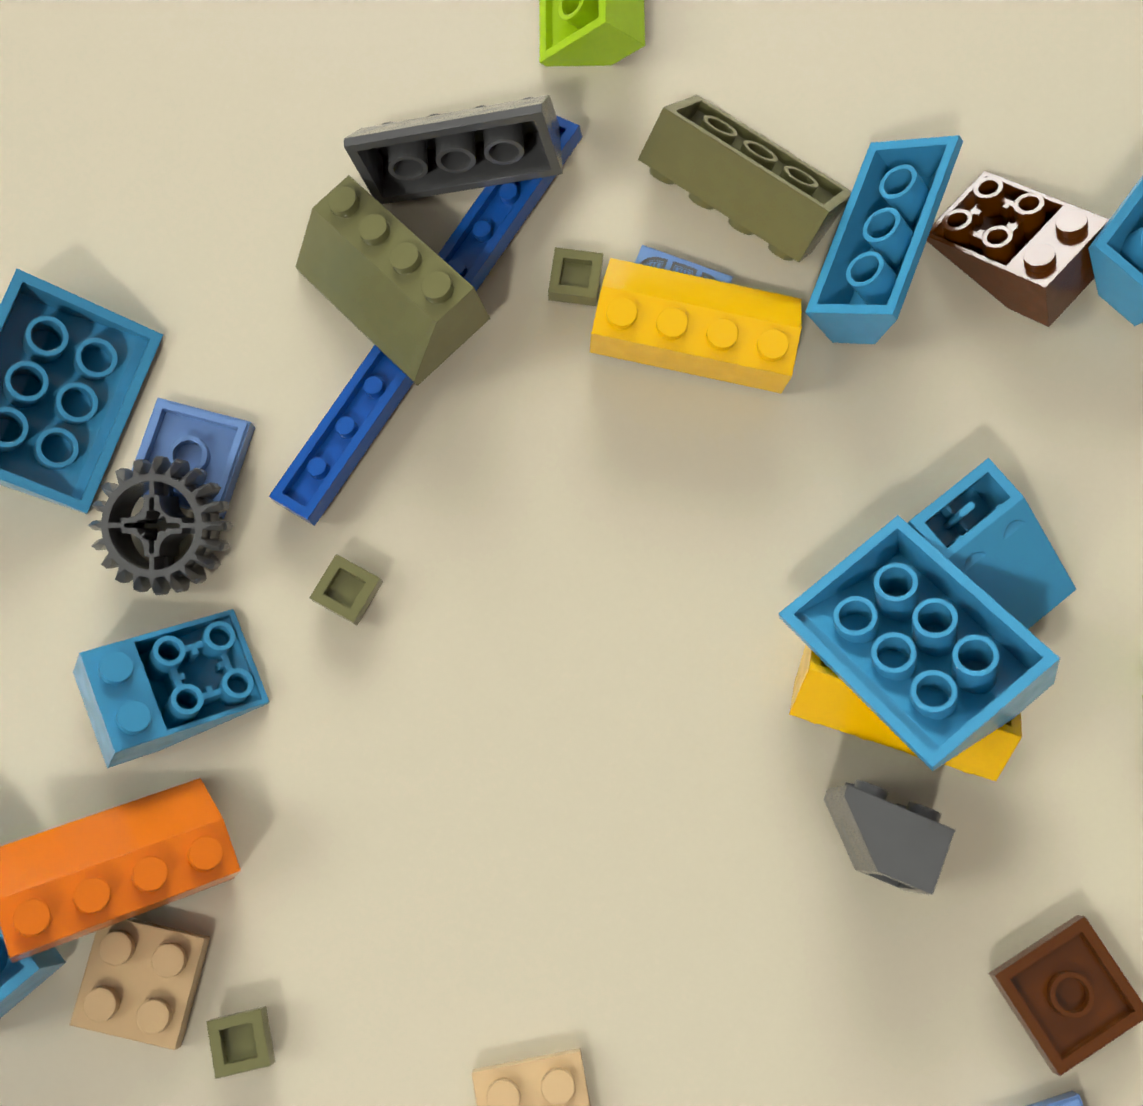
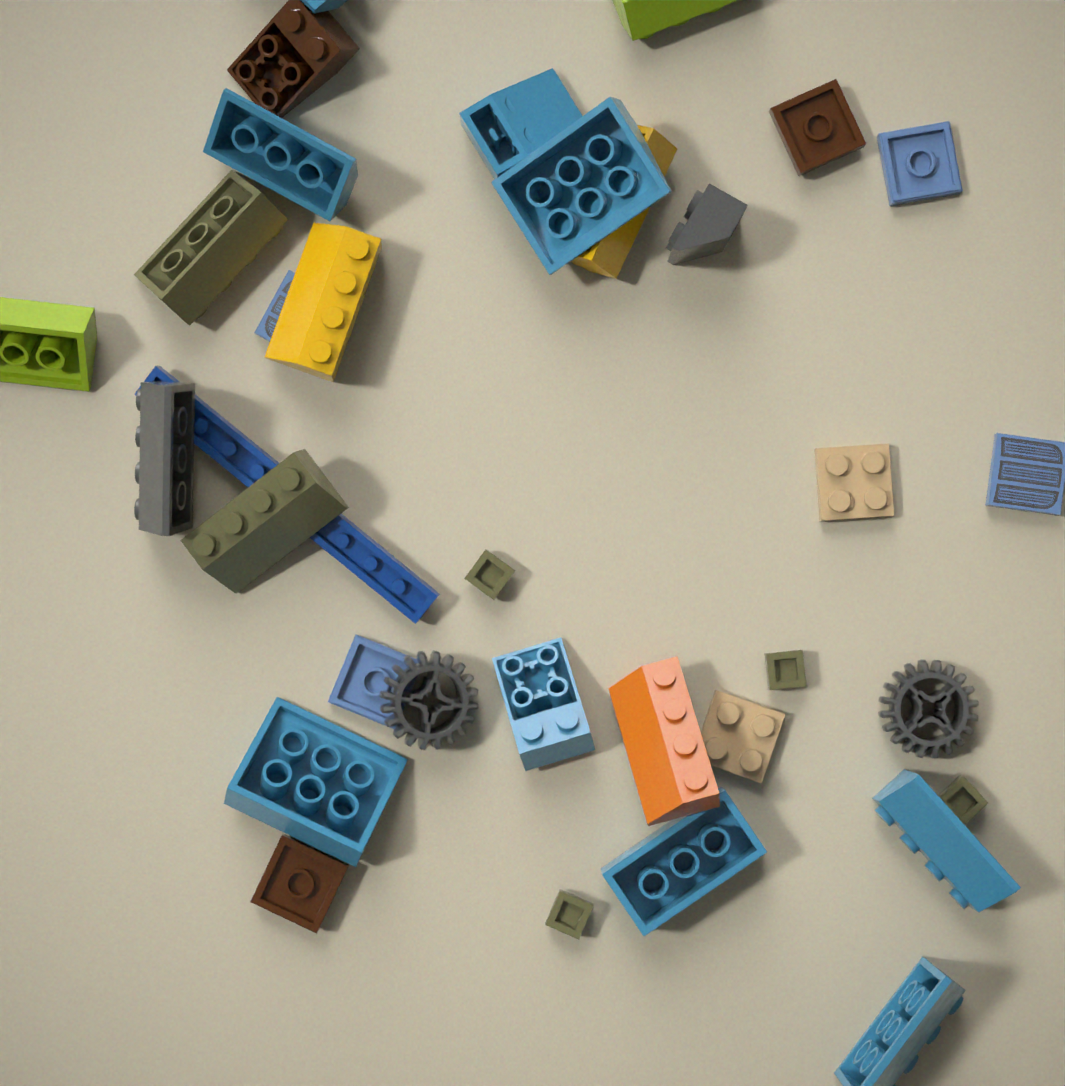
camera: 85 degrees left, 10 degrees up
(575, 276) = (274, 384): olive plate -> none

